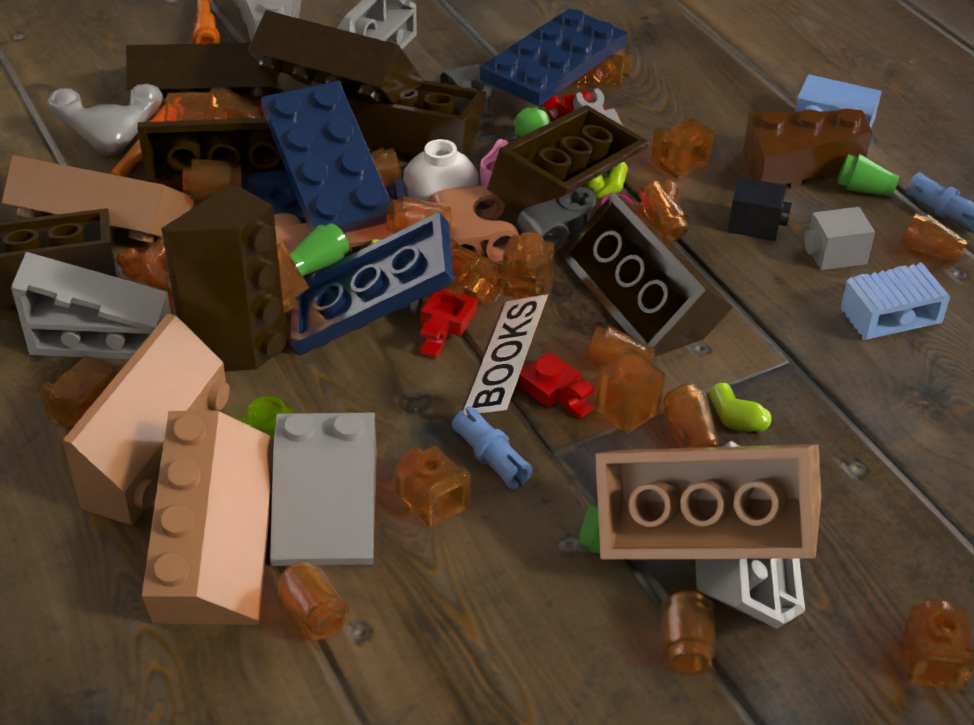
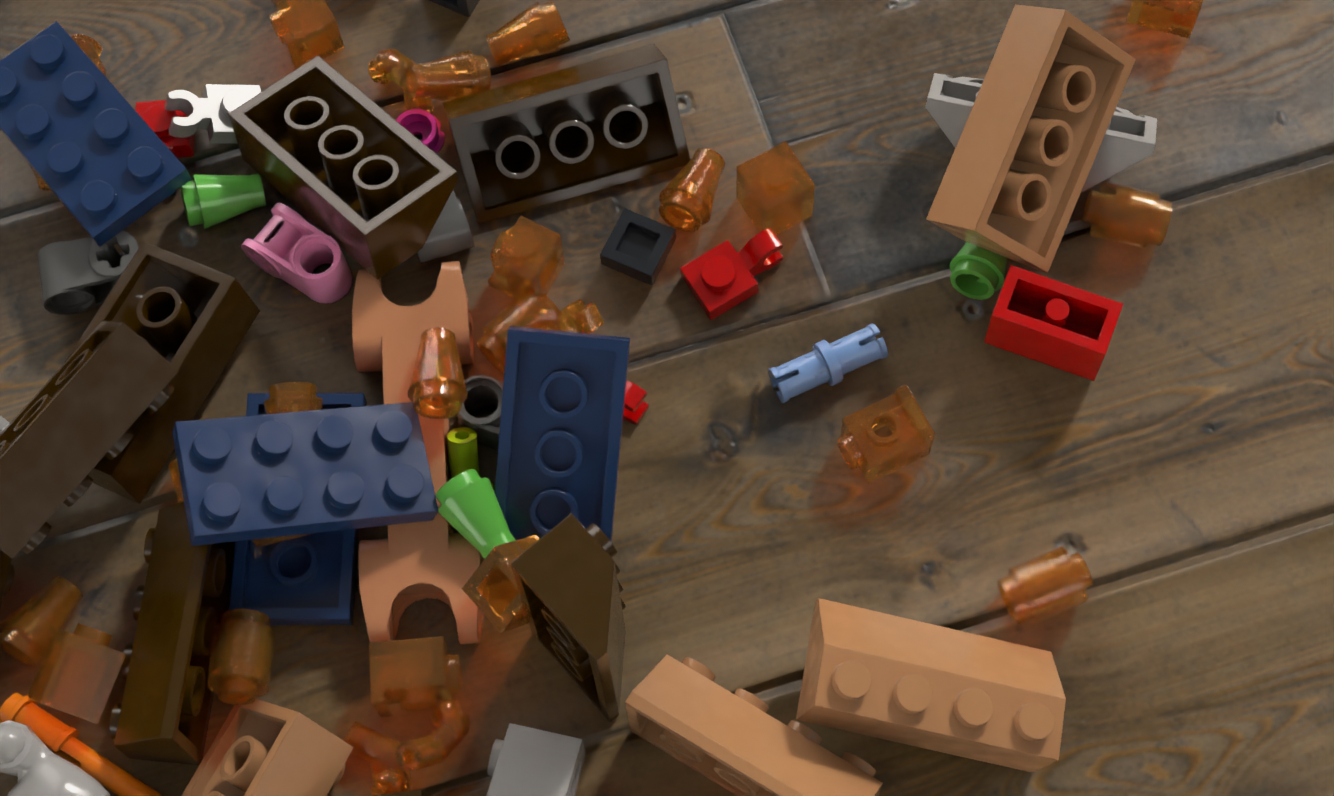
camera: 75 degrees left, 25 degrees up
(263, 413) = (738, 600): clear neon green plate -> none
(323, 489) = (879, 553): light grey slope -> none
(438, 169) = (317, 355): white piece -> none
(506, 355) = (670, 320): white sticker -> none
(554, 573) = (1053, 322): none -> red brick
(561, 328) = (638, 246): none -> black plate
(691, 416) = (823, 137): clear orange cone -> none
(722, 253) = (529, 34): none -> clear orange cone
(738, 413) = (812, 91): lime arm -> none

